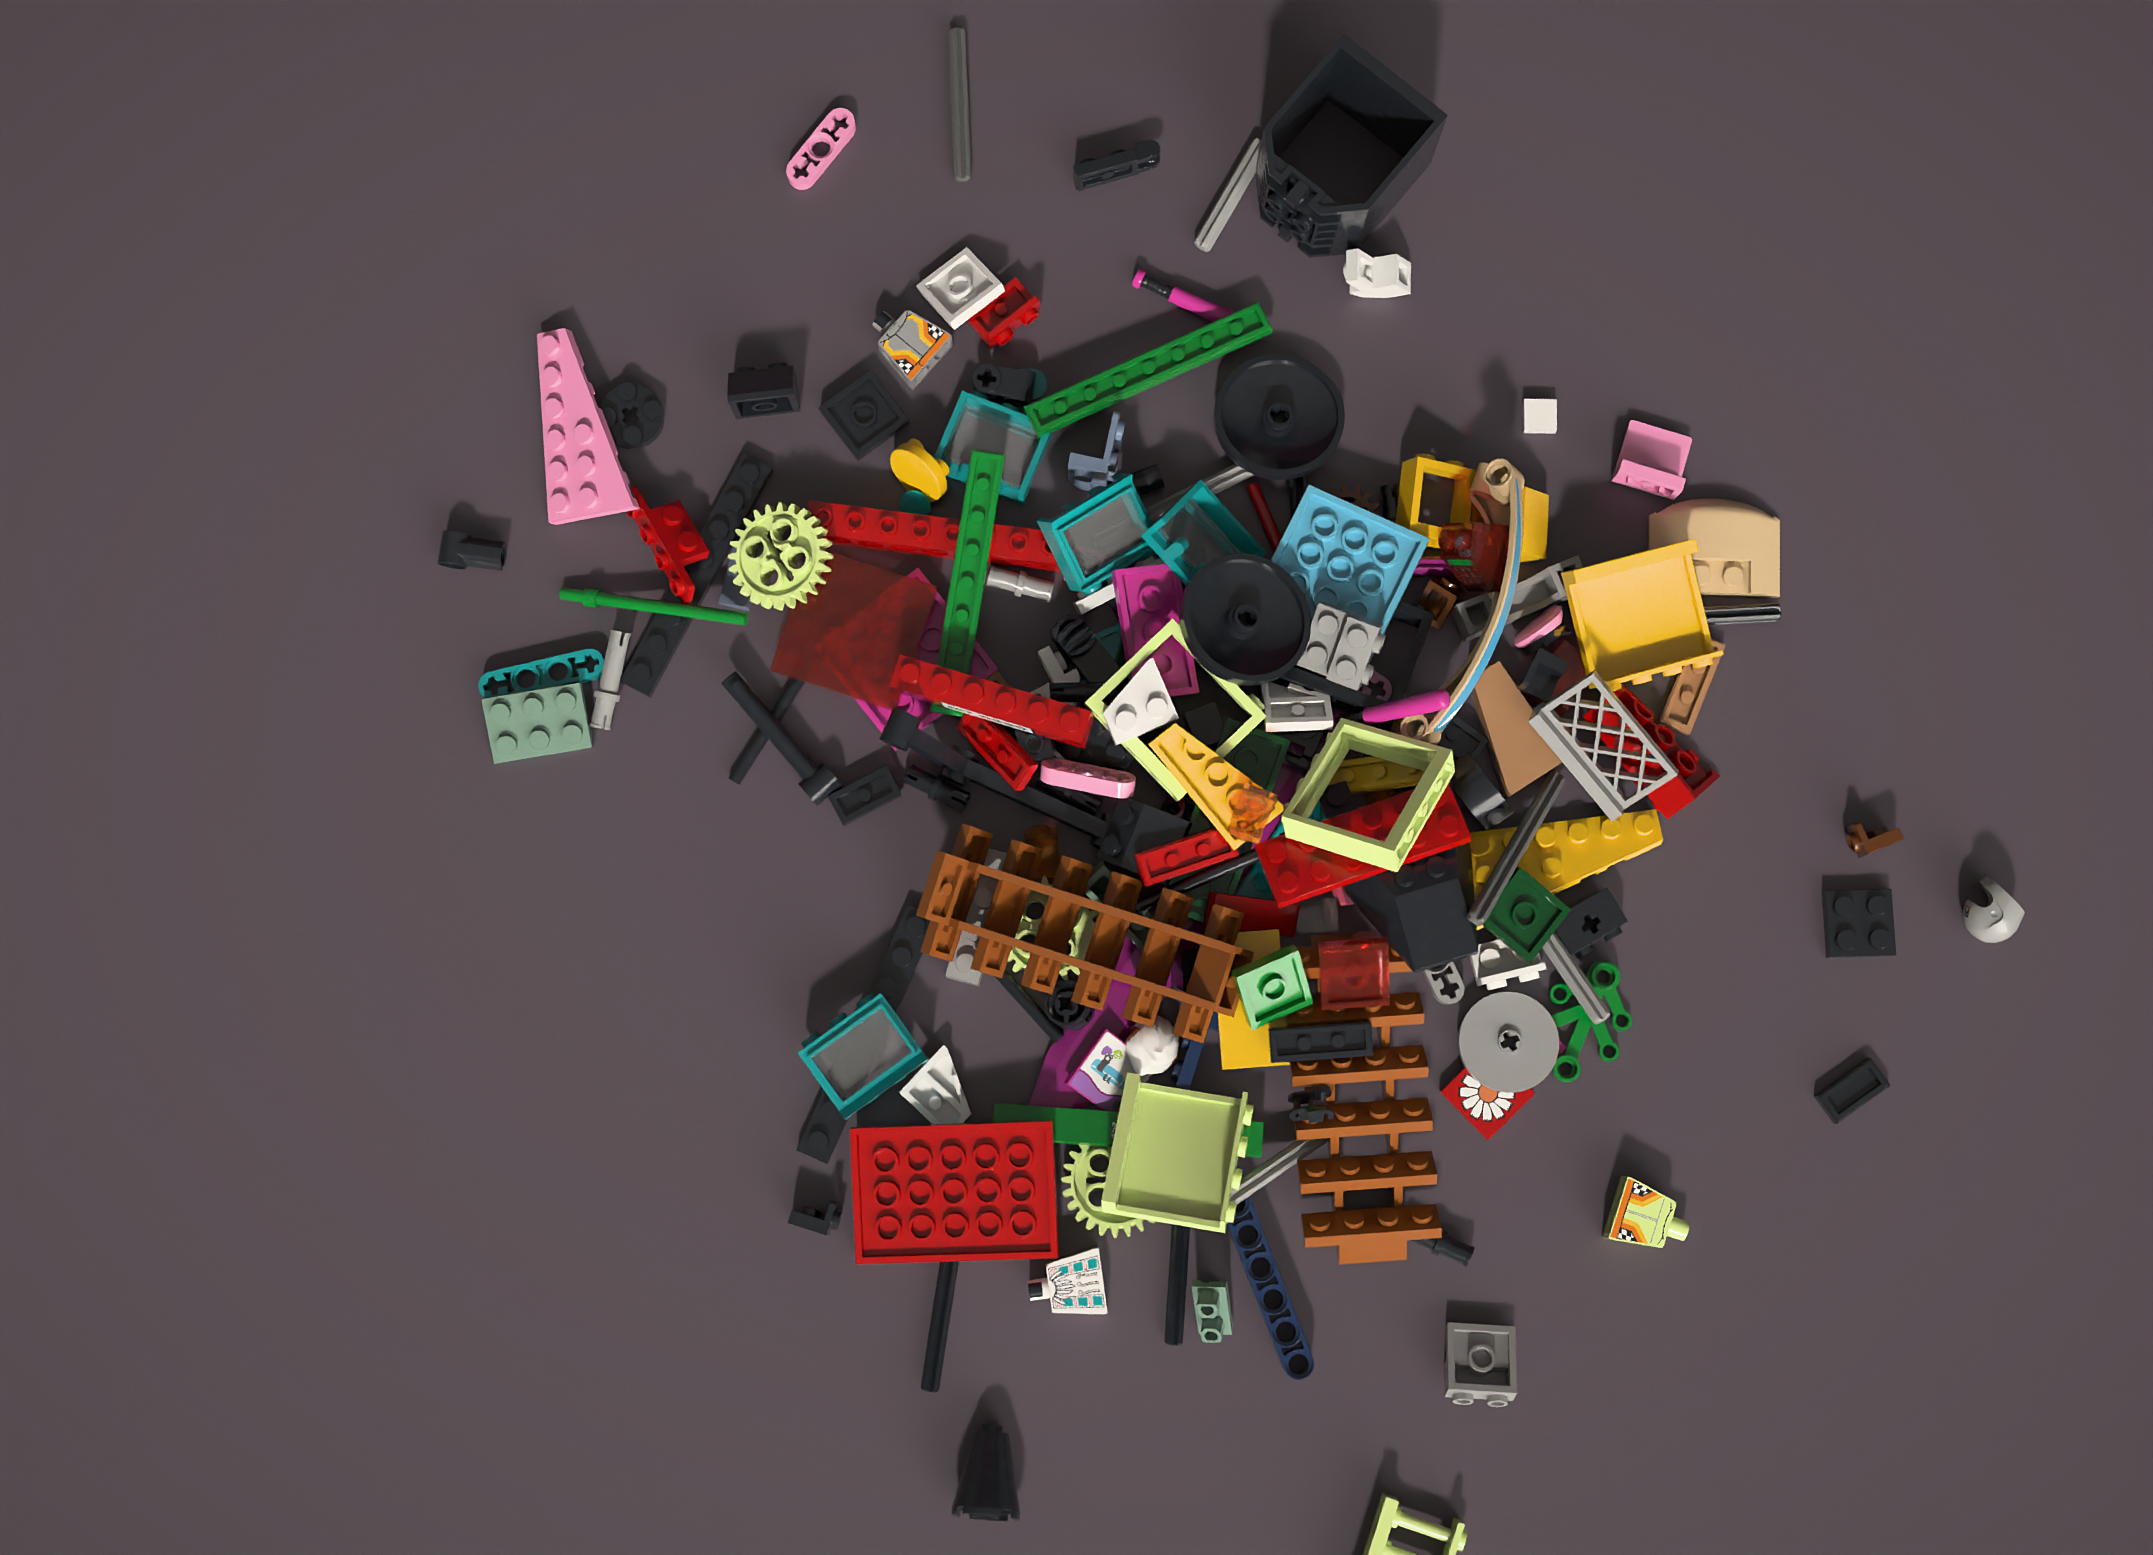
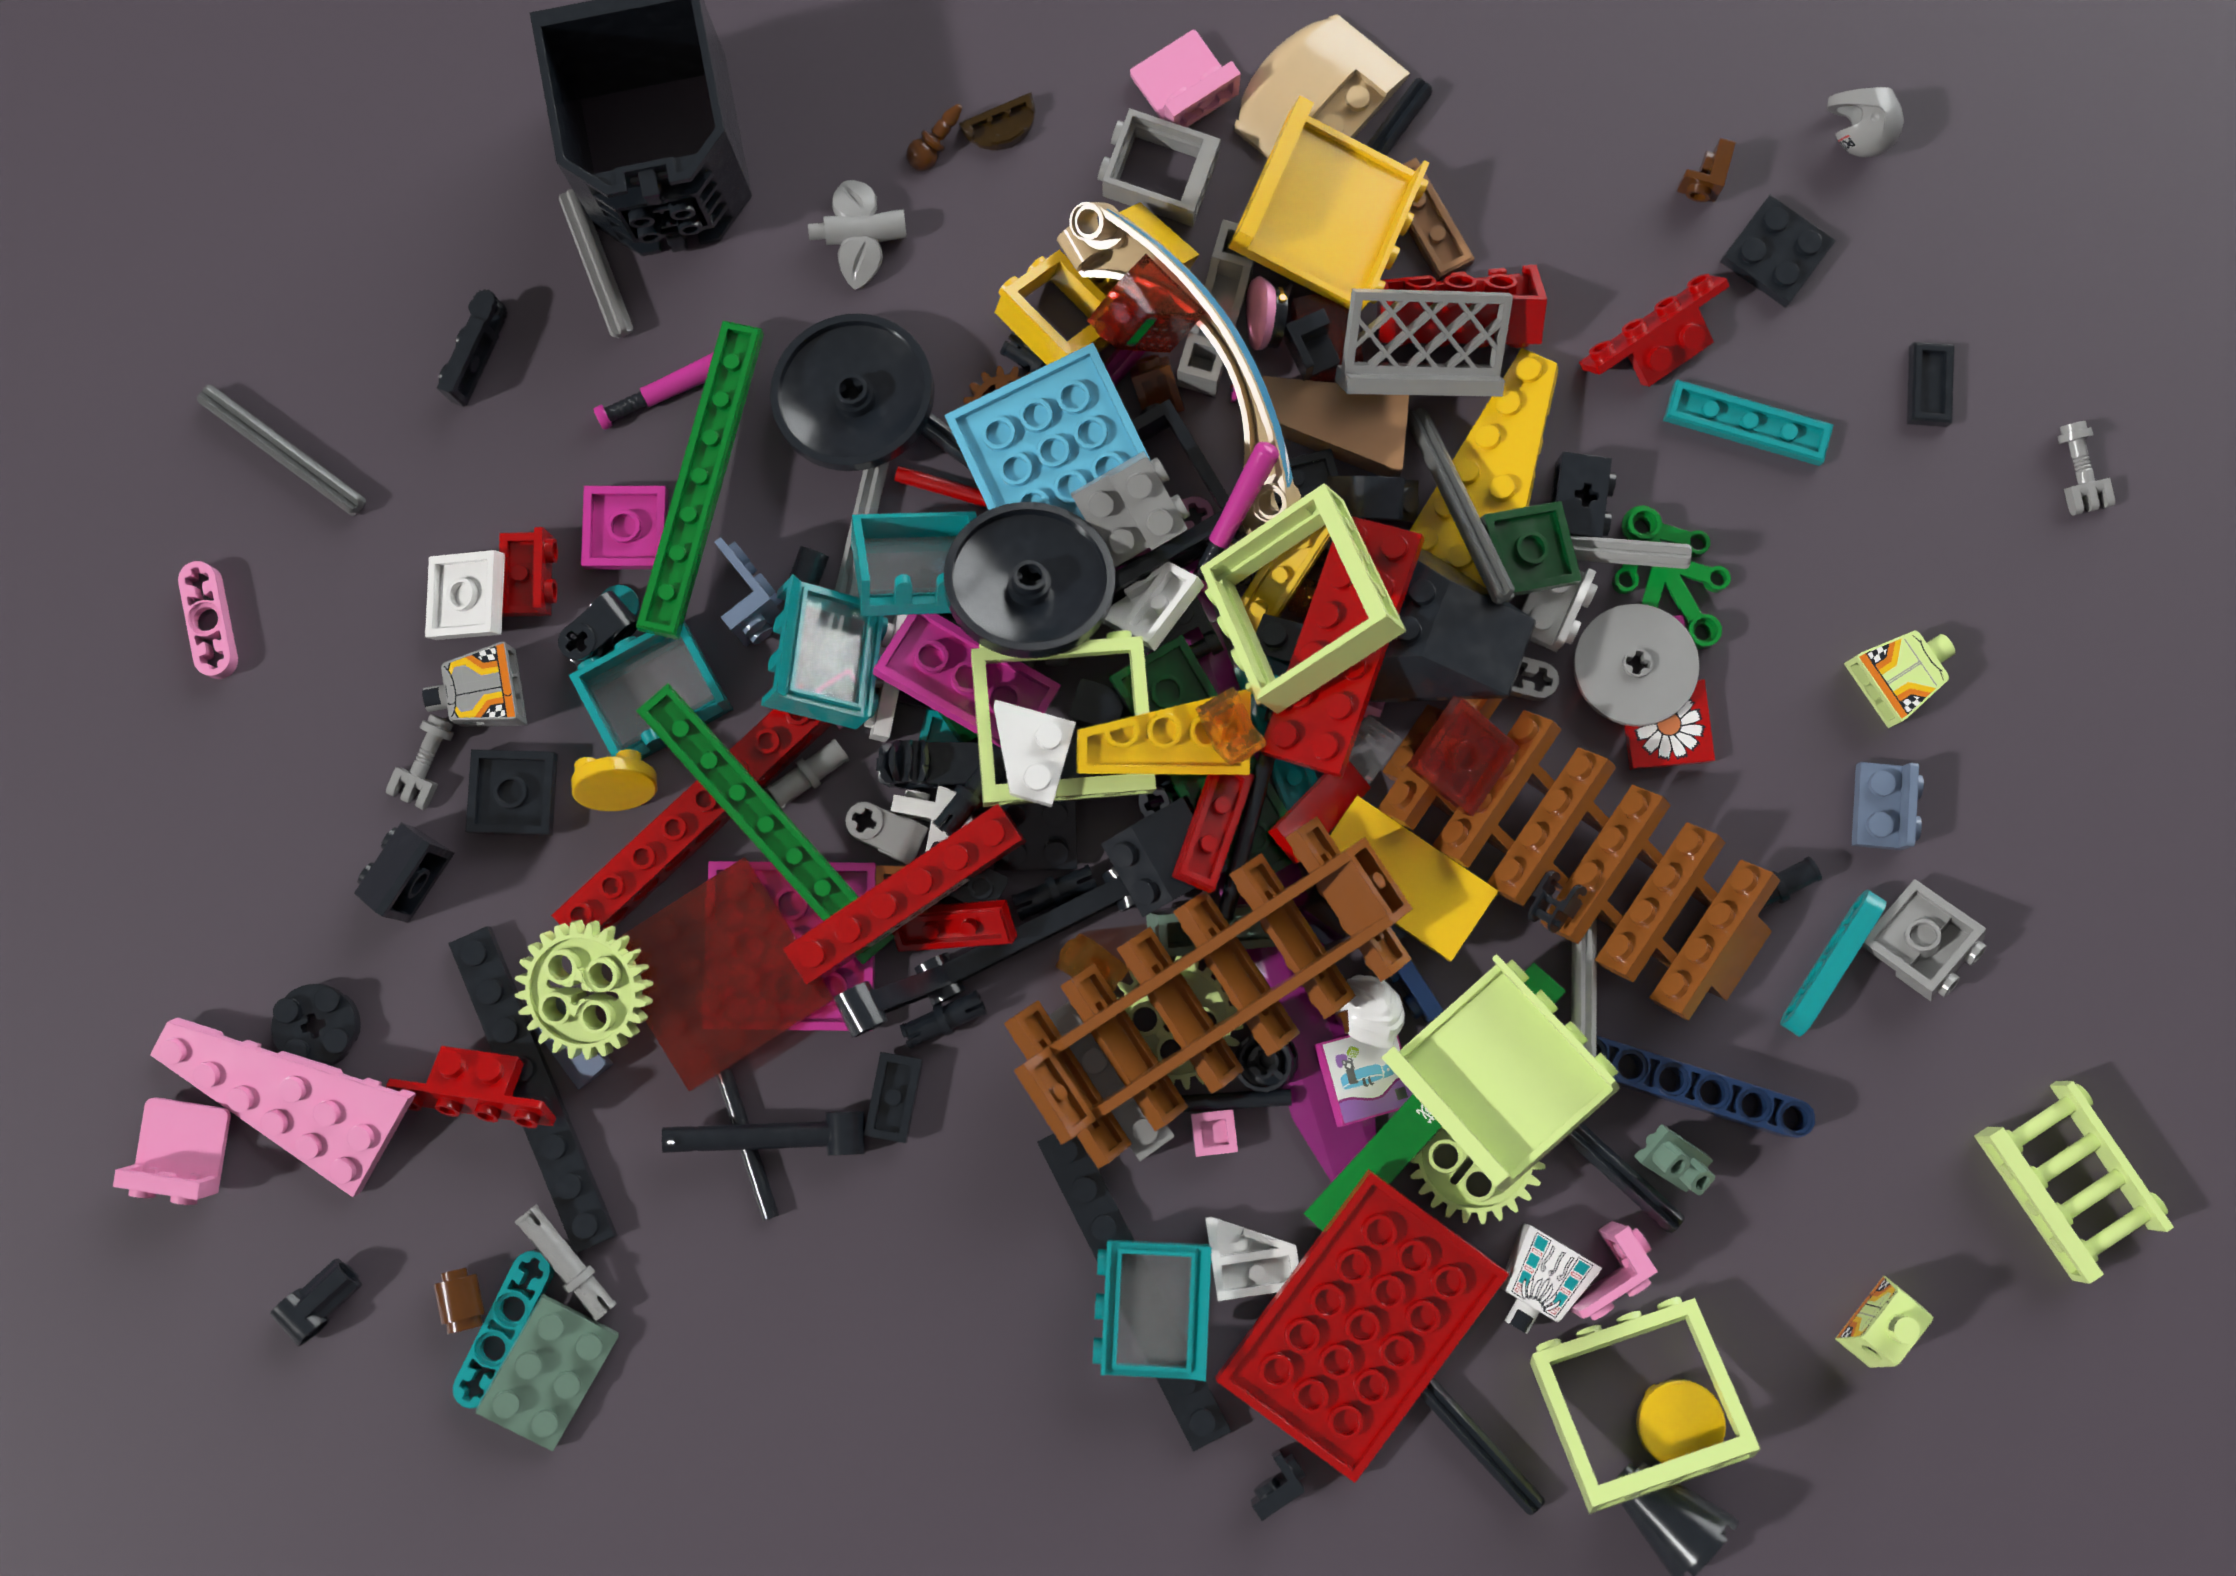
camera: 50 degrees left, 0 degrees up
(494, 398) = (177, 1152): none -> bright pink bracket
(538, 635) = (459, 1300): none -> reddish brown brick
(595, 597) = (470, 1210): green bar -> none
(825, 351) = (415, 779): none -> light grey hinge
(915, 502) = (641, 812): teal piece -> none
(1000, 1009) = (1214, 1133): none -> bright pink plate
(1014, 1449) = (1665, 1474): none -> yellowish green window
(1023, 664) = (893, 834): none -> light grey piece
(1051, 1440) = (1679, 1419): none -> yellow tile
(1081, 346) = (622, 526): none -> dark pink plate
(1087, 778) = (1057, 861): bright pink beam -> none
(1133, 1322) = (1631, 1278): none -> bright pink bracket
(1214, 1522) = (1886, 1323): none -> yellowish green torso
(1272, 986) = (1413, 845): plate -> none
(1320, 1041) = (1502, 843): black tile -> none
(1377, 276) = (792, 190): white brick -> none
(1385, 337) = (858, 231): none -> light grey plant
(1418, 1315) = (1833, 963): none -> teal beam
(1470, 335) = (923, 152): none -> reddish brown bar
(1529, 370) = (1002, 125): none -> dark brown tile
(1539, 416) = (1055, 151): white tile -> none
(1548, 1272) = (1886, 806): none -> sand blue bracket
(1594, 520) = (1171, 136): none -> light grey window
(1728, 992) = (1748, 422): none -> teal tile
(1739, 894) = (1663, 337): none -> red bracket
(1867, 1245) = (2087, 487): none -> light grey hinge

